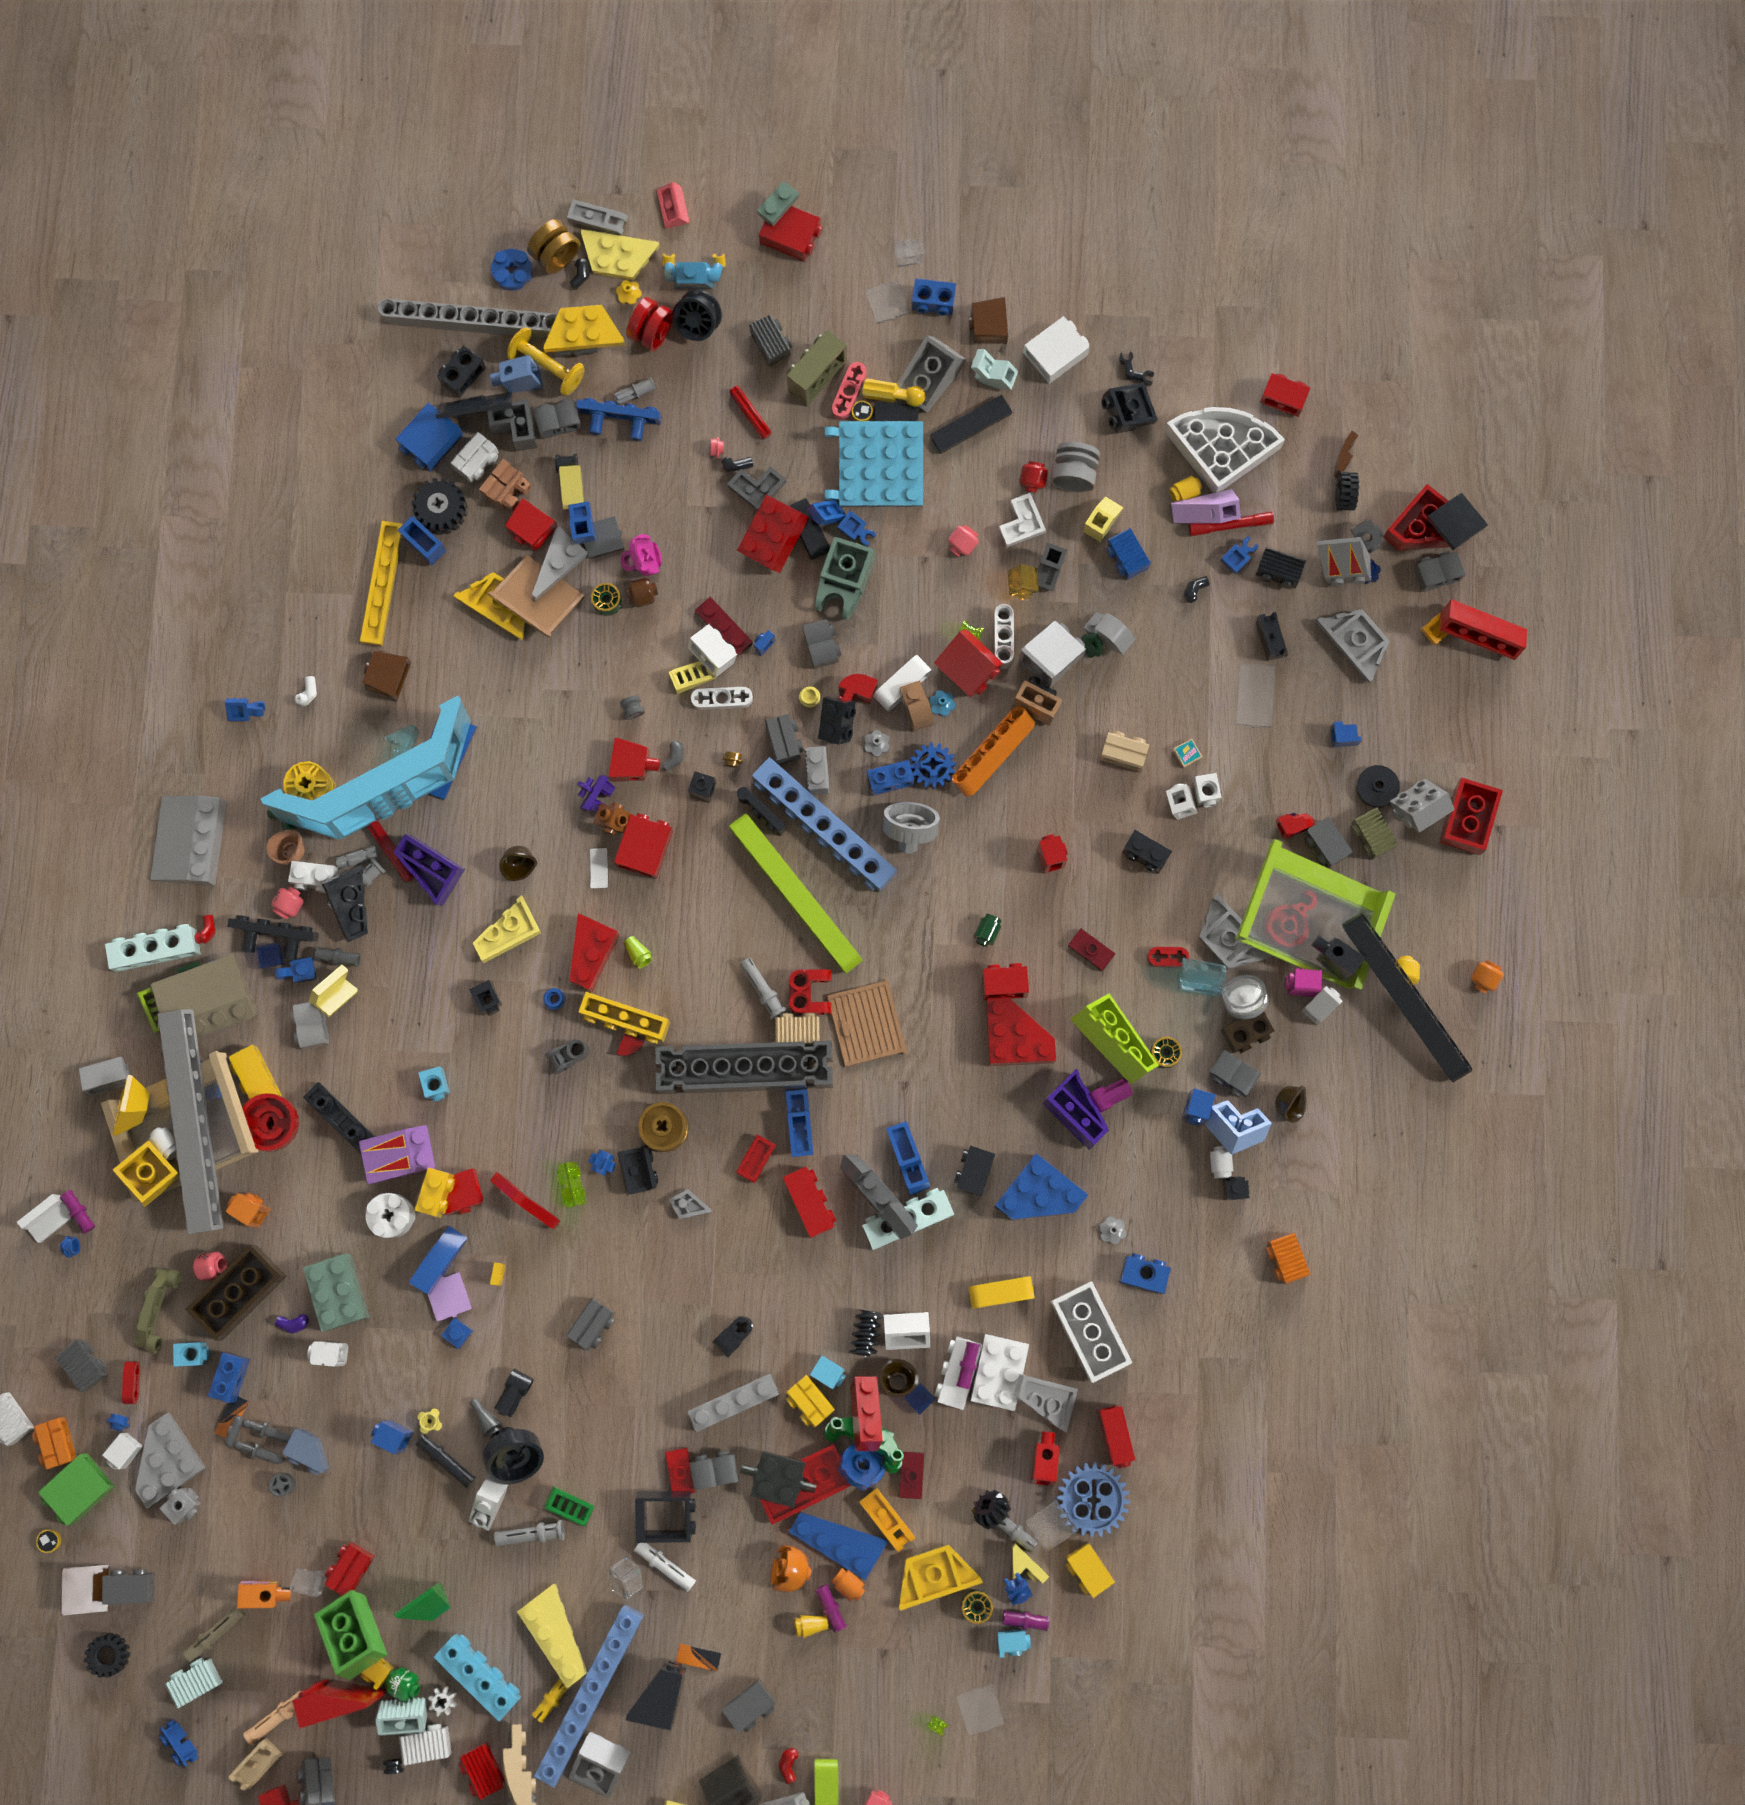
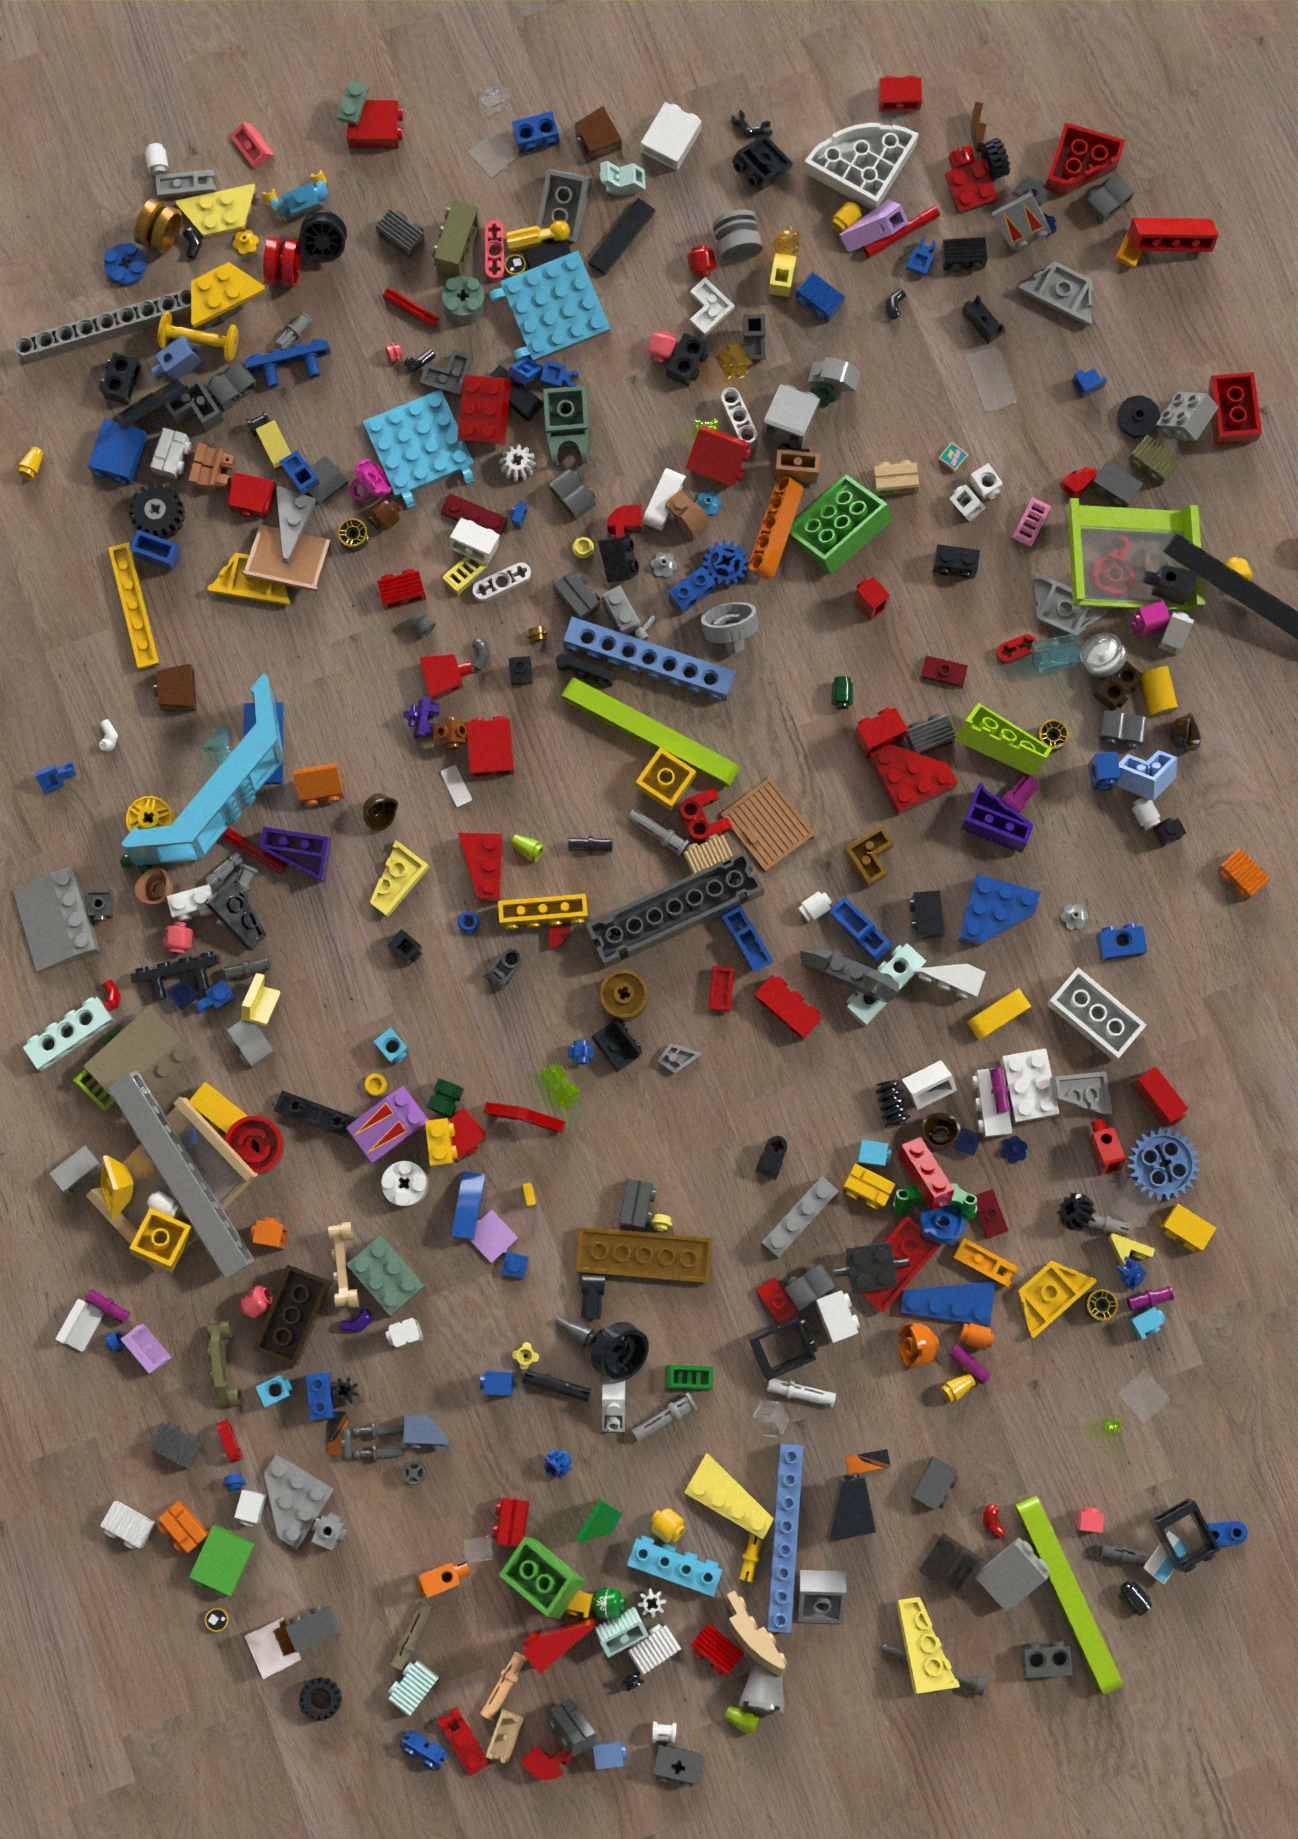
camera: 25 degrees left, 0 degrees up
(94, 1265) = (146, 1348): none -> lavender hinge
(217, 1752) = (464, 1742): none -> red plate
(240, 840) = (106, 910): none -> dark grey brick
(253, 1376) = (351, 1393): none -> black gear
(296, 1276) = (339, 1255): none -> tan plate
(346, 417) = (29, 466): none -> yellow cone
(405, 1112) = (375, 1084): none -> yellow tile
(413, 1534) = (557, 1463): none -> blue gear
(460, 1152) = (445, 1097): none -> dark green wheel
(473, 816) = (318, 784): none -> orange slope
(488, 1636) = (667, 1525): none -> yellow head
(577, 1375) = (644, 1255): none -> pearl gold plate
(580, 185) = (156, 159): none -> white brick
(606, 1352) = (661, 1223): none -> light yellow plate
(627, 667) = (401, 589): none -> red brick
(695, 974) = (590, 844): none -> black pin
(702, 541) = (419, 445): none -> medium azure plate
(725, 1511) = (836, 1316): none -> white brick
(775, 592) = (517, 455): none -> white gear
(789, 943) = (665, 779): none -> yellow brick
(795, 414) = (465, 289): none -> sand green brick
(826, 798) = (640, 632): none -> light grey hand
(875, 1118) = (815, 906): none -> white brick
(941, 1089) = (864, 855): none -> pearl gold brick
(956, 1419) = (1008, 1151): none -> clear blue plant
(976, 559) = (683, 358): none -> black brick
(978, 1241) = (961, 978): none -> white slope
(1052, 1004) = (931, 734): none -> dark grey brick
(1054, 772) = (840, 524): none -> bright green slope
(1121, 490) = (787, 241): none -> clear yellow animal
(1246, 831) = (1039, 506): none -> bright pink slope
(1283, 1052) = (1158, 691): none -> yellow brick
(1315, 502) = (969, 181): none -> red plate
(1457, 521) = (1108, 145): black slope -> none

